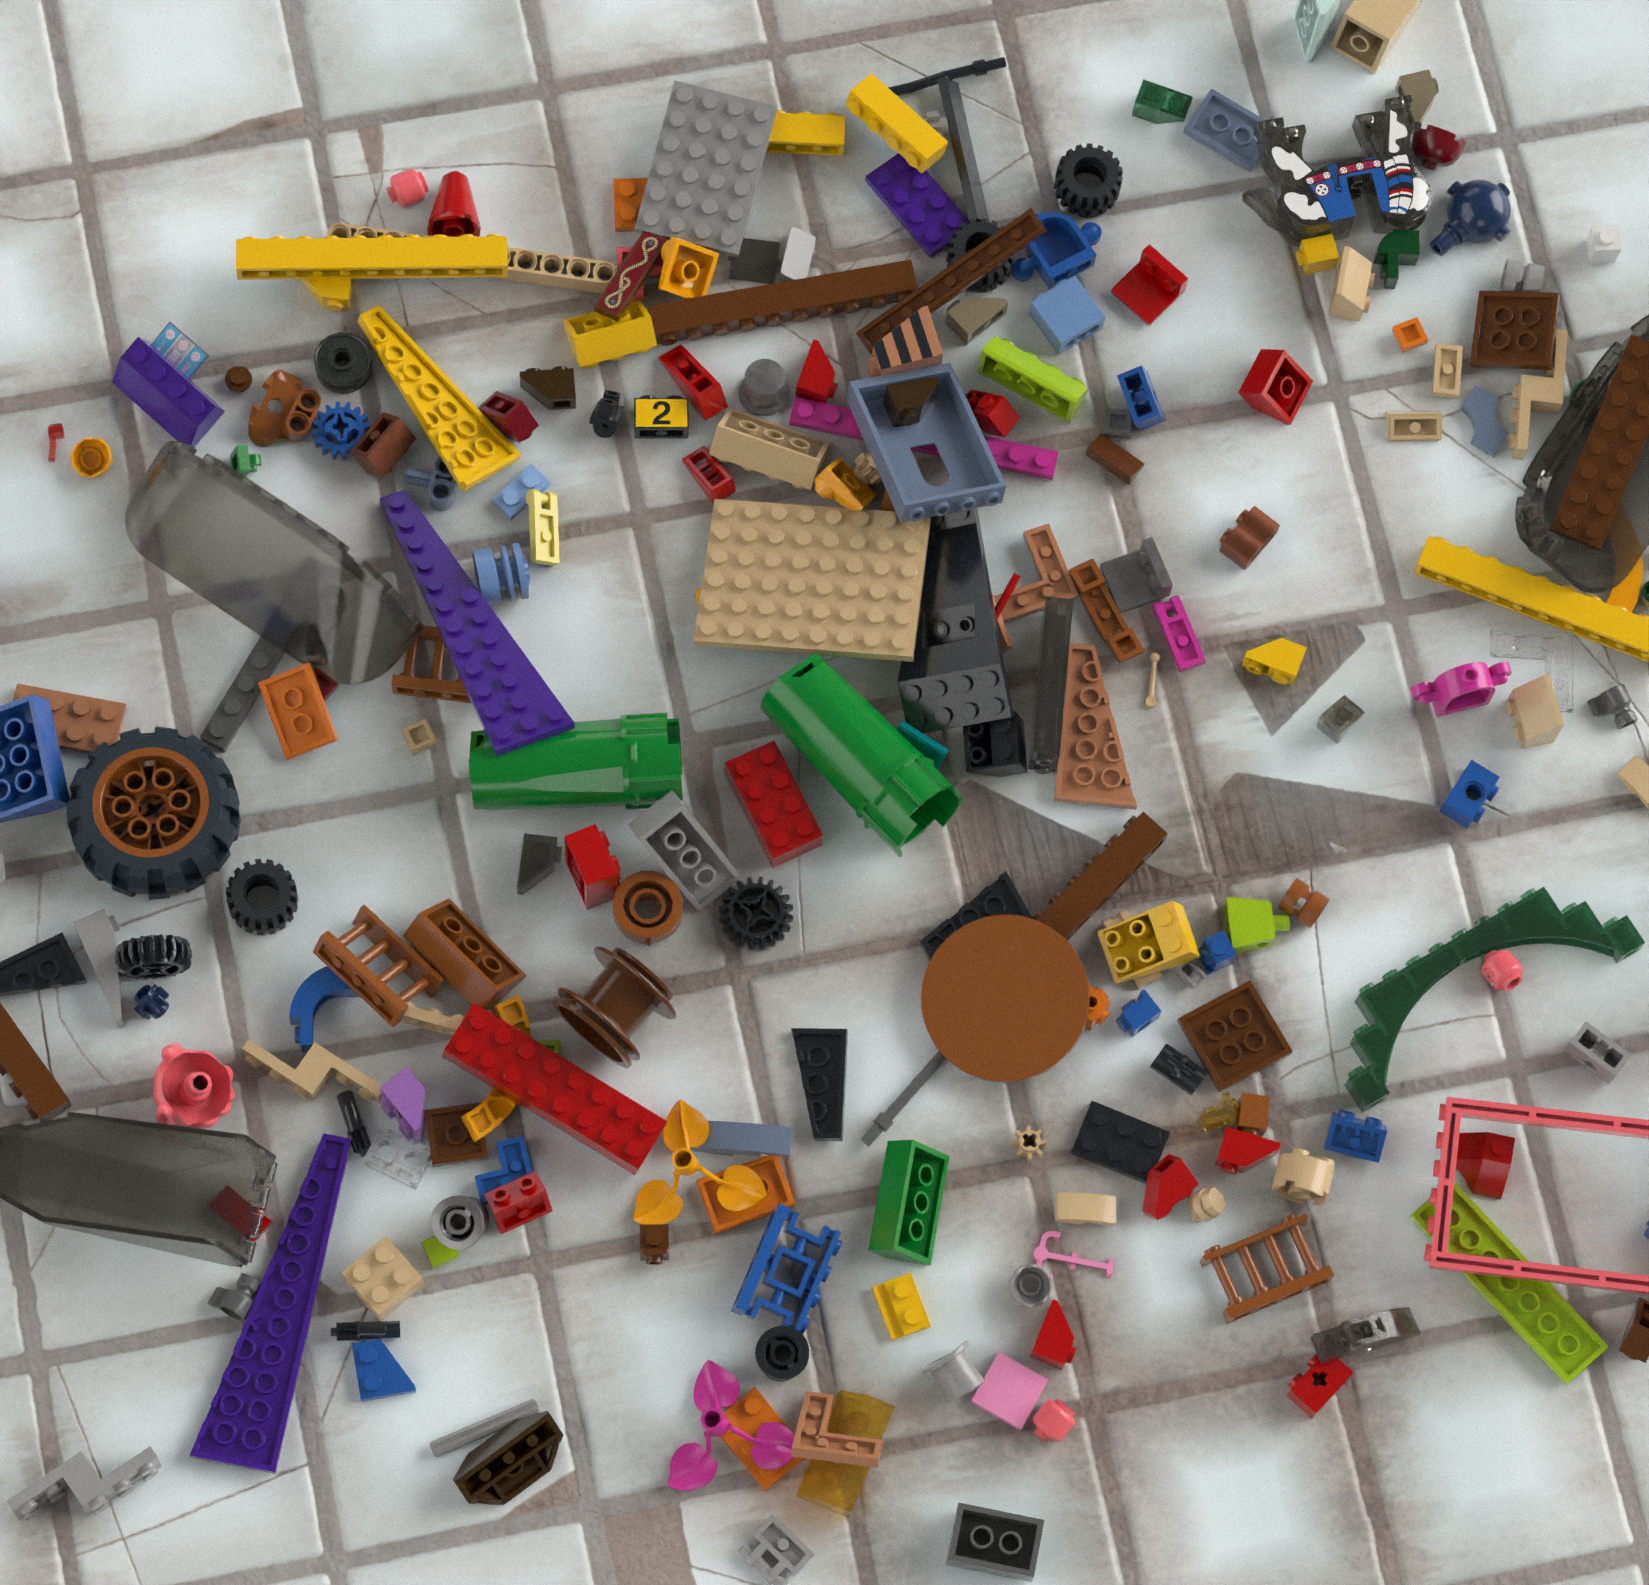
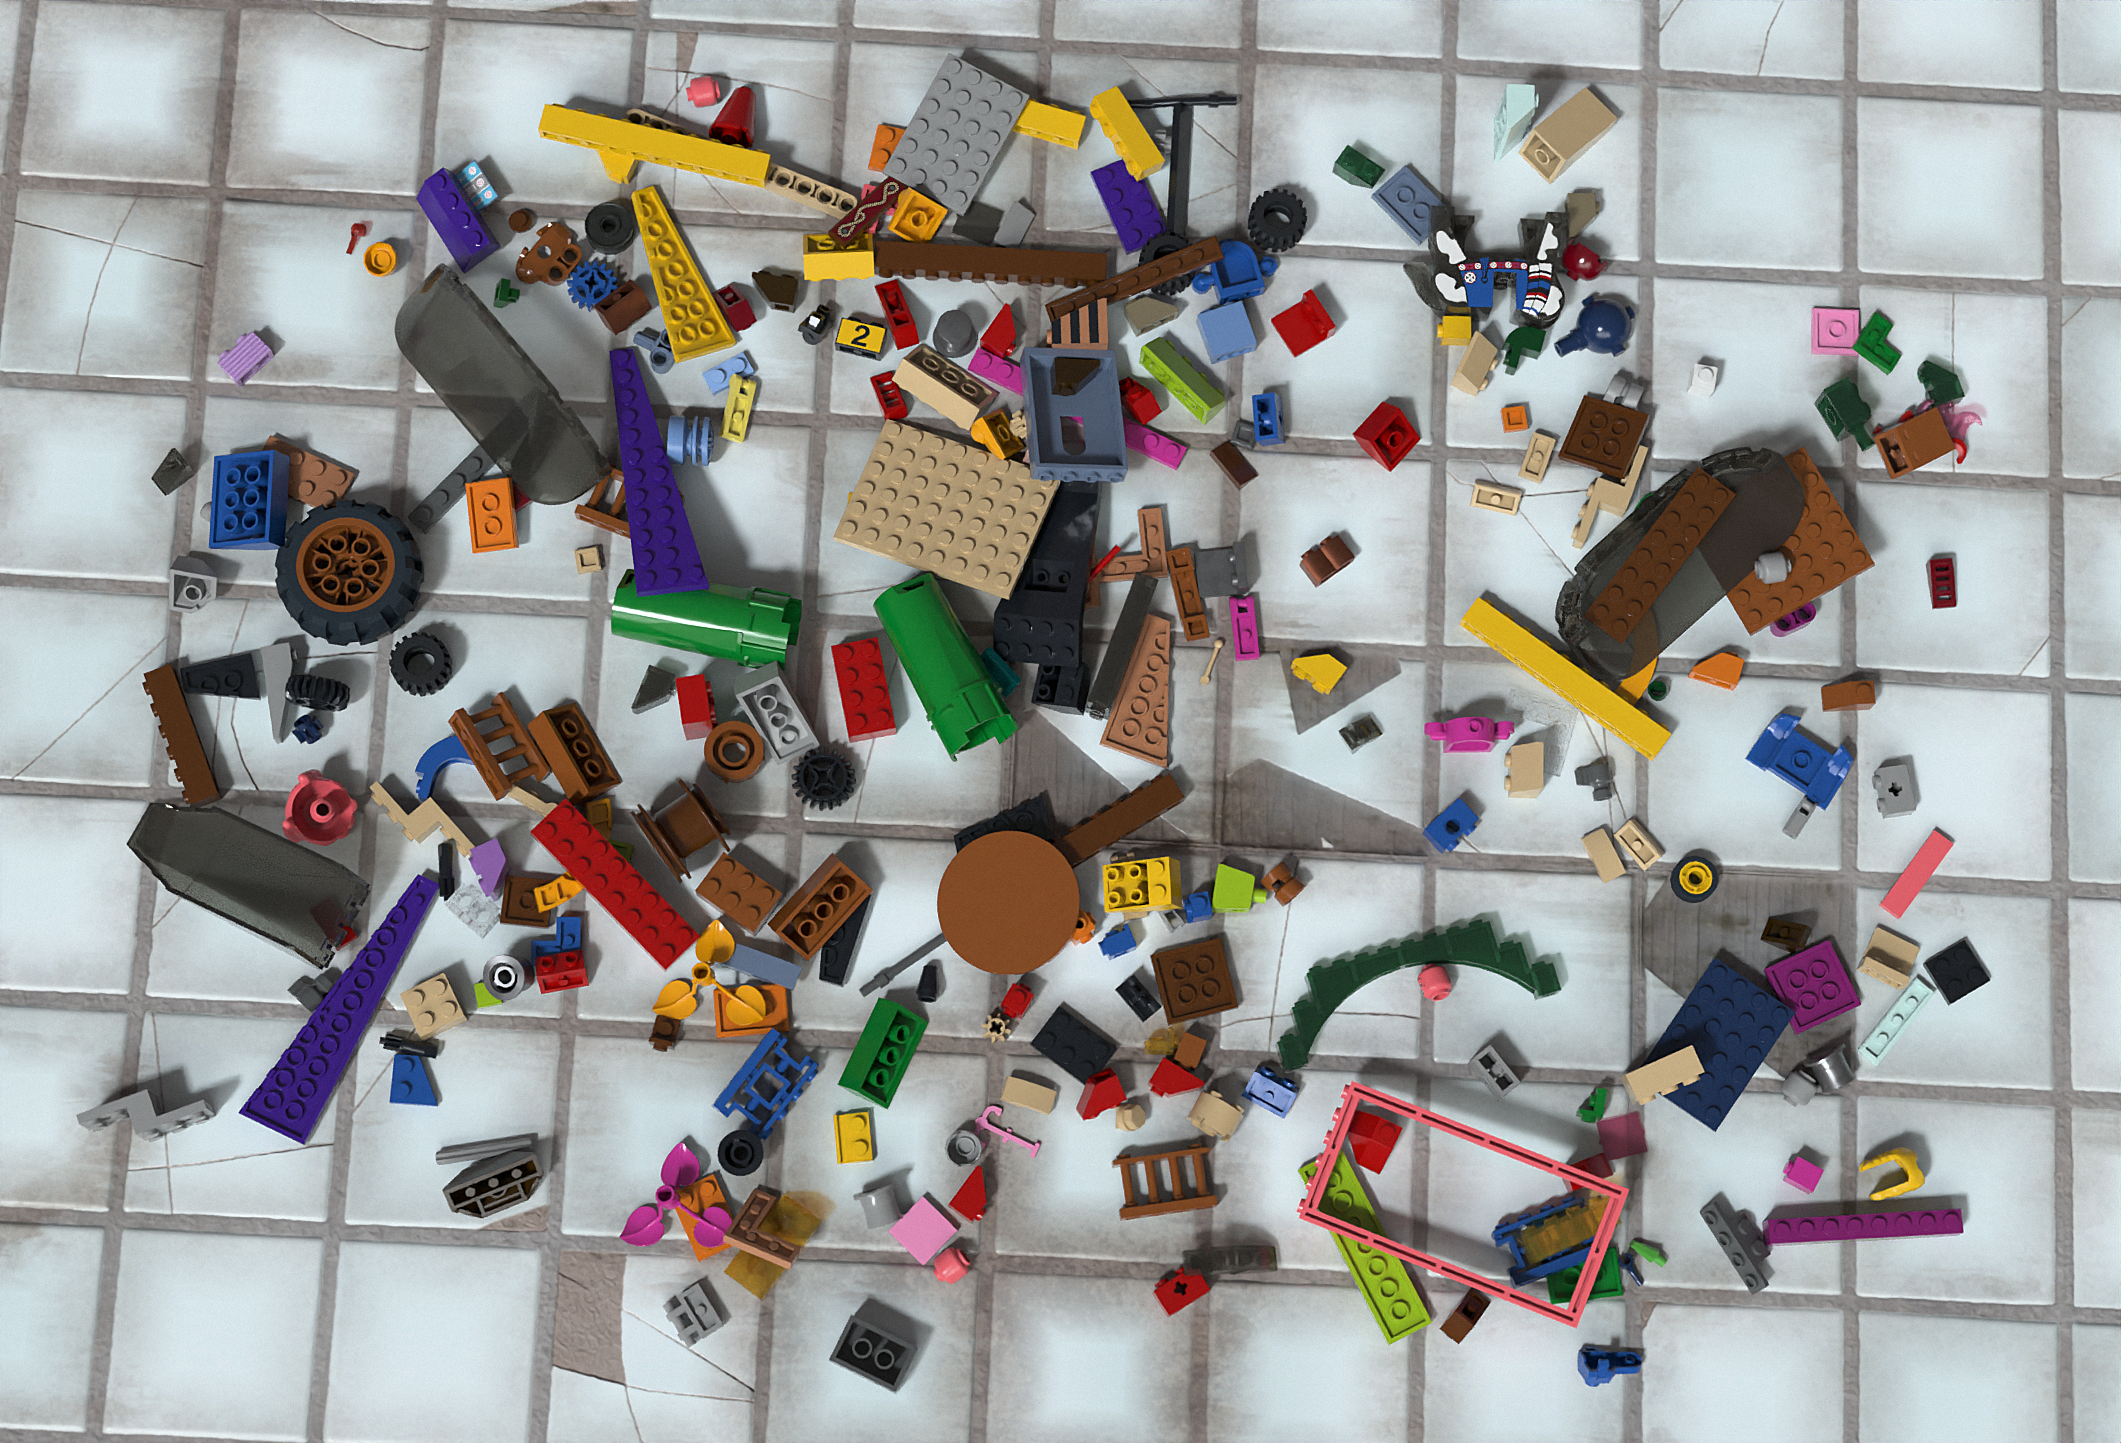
camera: 15 degrees right, 5 degrees up
(696, 1065) = (739, 894): none -> dark orange brick
(793, 1056) = (819, 907): none -> dark orange slope
(938, 1114) = (928, 985): none -> black cone
(1044, 1106) = (1017, 1001): none -> red brick
(1481, 410) = (1556, 499): sand blue tile -> none

